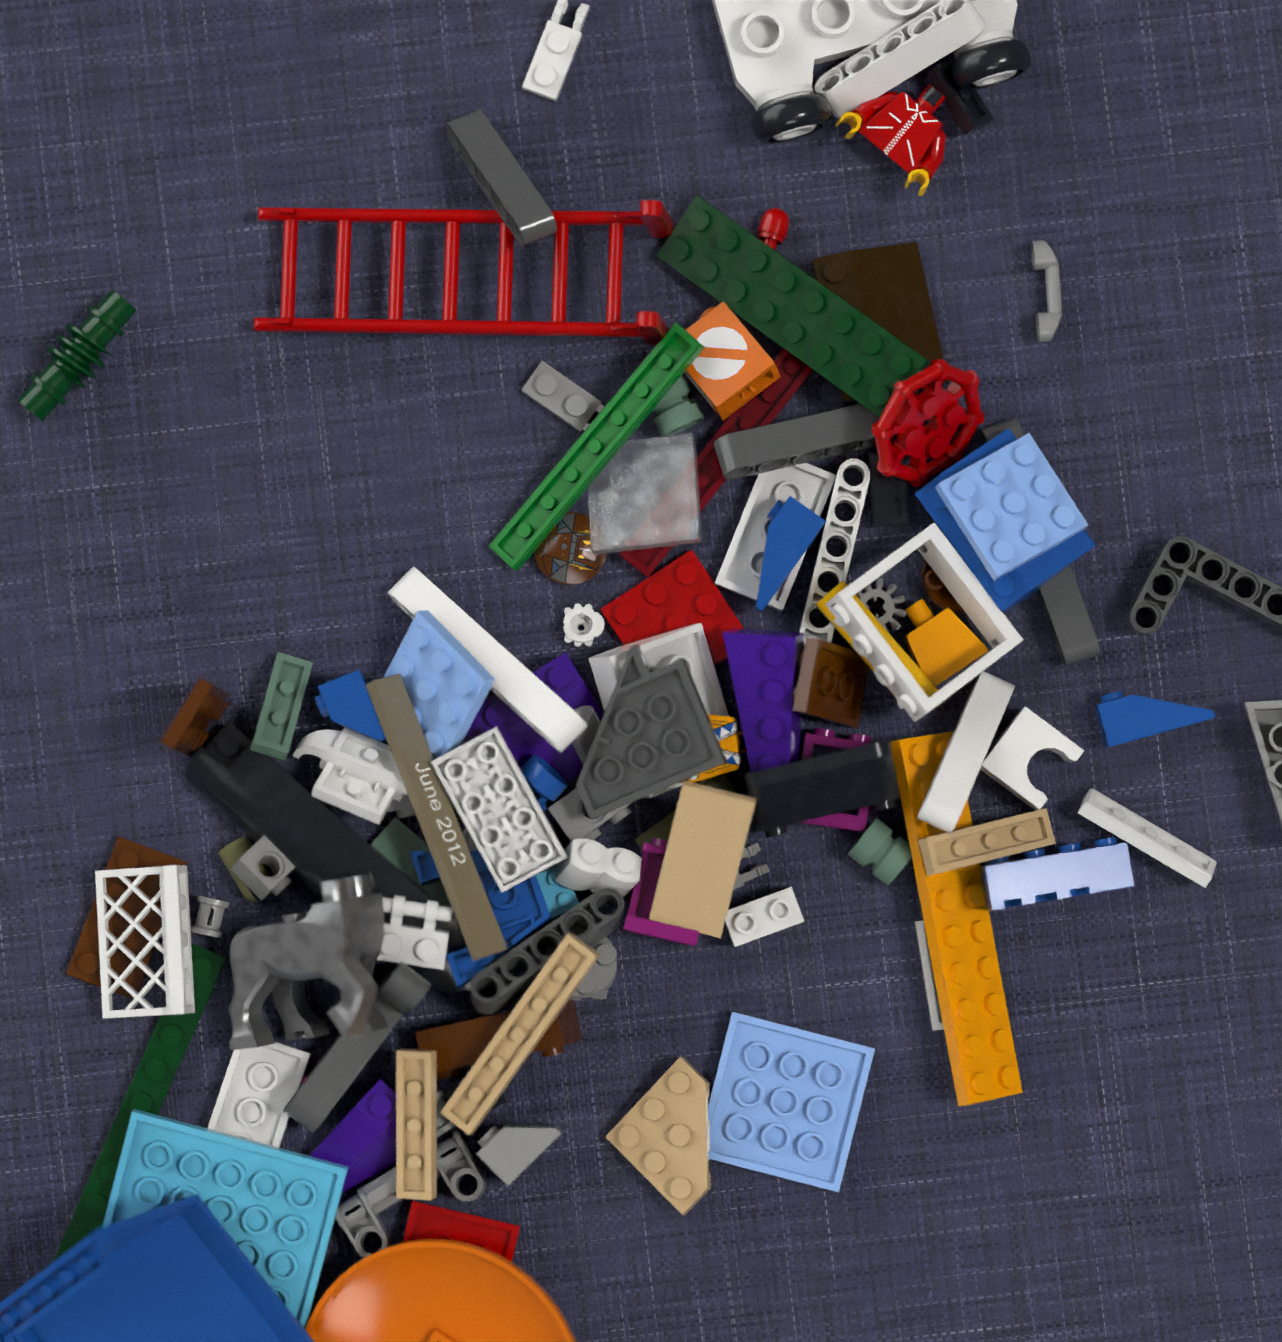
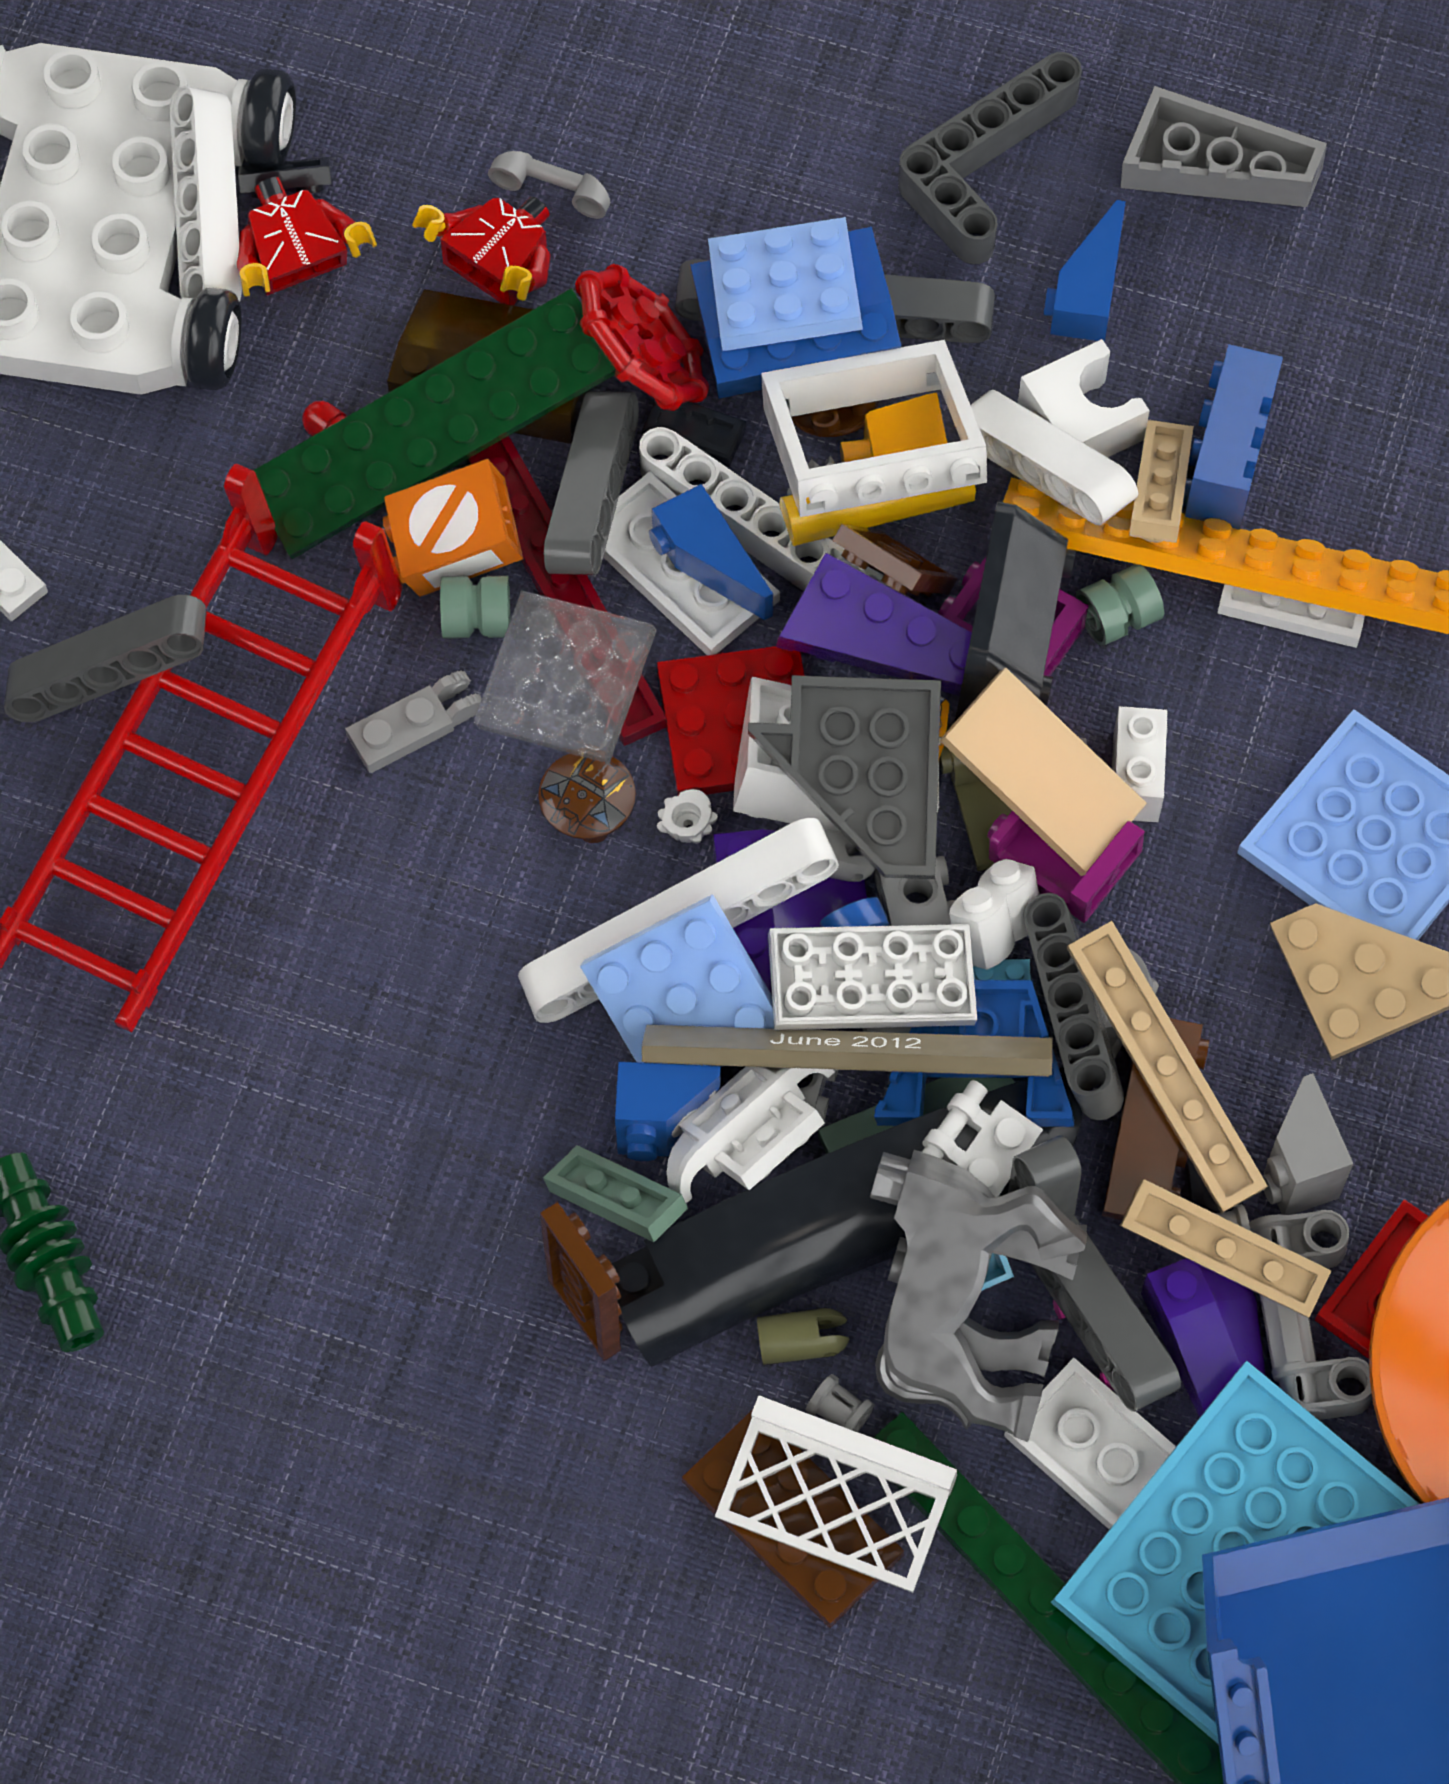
camera: 65 degrees left, 20 degrees down
(268, 854) = (812, 1298): light grey brick -> none
(596, 446) = (483, 703): green tile -> none
(969, 278) = (493, 245): none -> red torso
(1147, 837) = (1229, 330): white tile -> none

